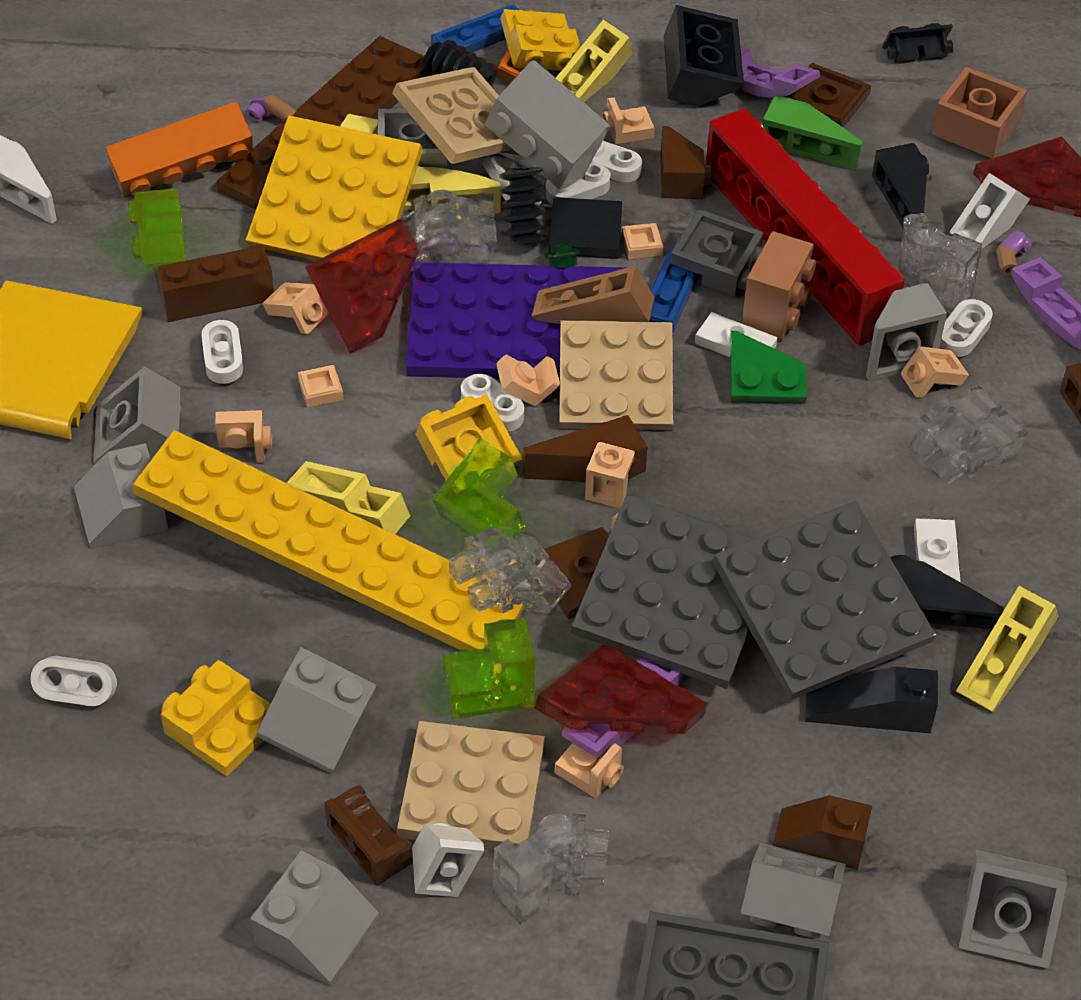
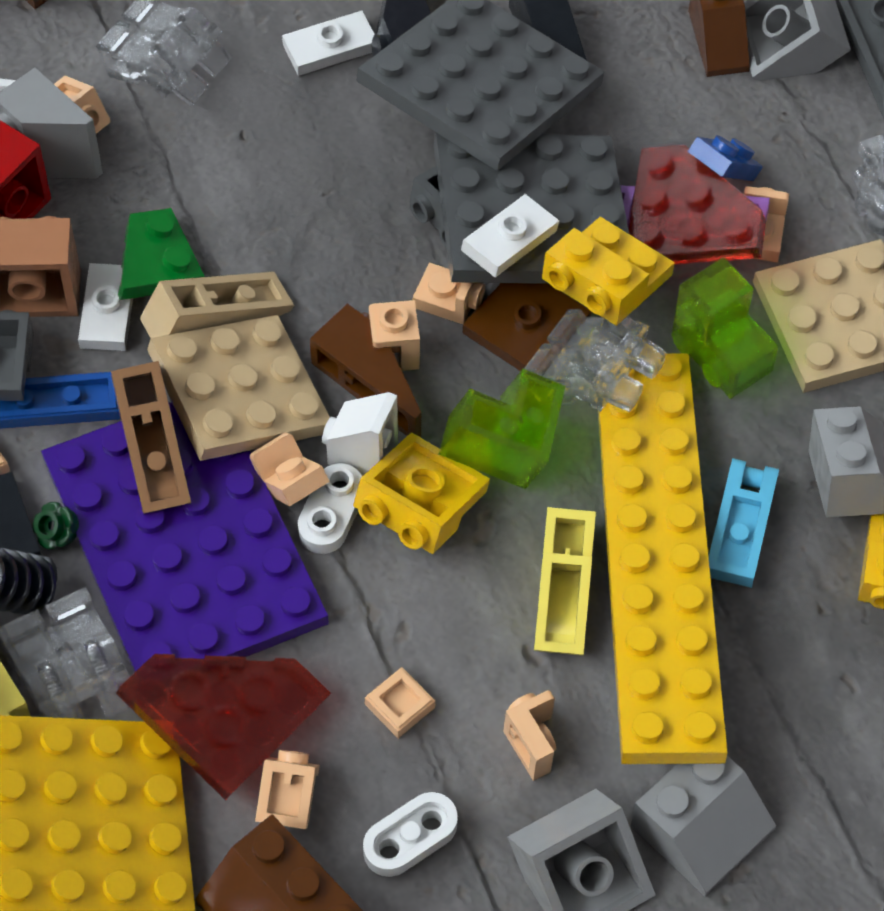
camera: 115 degrees left, 10 degrees up
(326, 624) = (741, 523): none -> medium azure plate
(528, 418) = (362, 432): none -> white slope
(569, 579) = (605, 269): none -> yellow plate
(635, 533) = (510, 235): none -> white plate
(660, 750) = (726, 158): none -> blue plate
(695, 387) = (213, 301): none -> tan slope

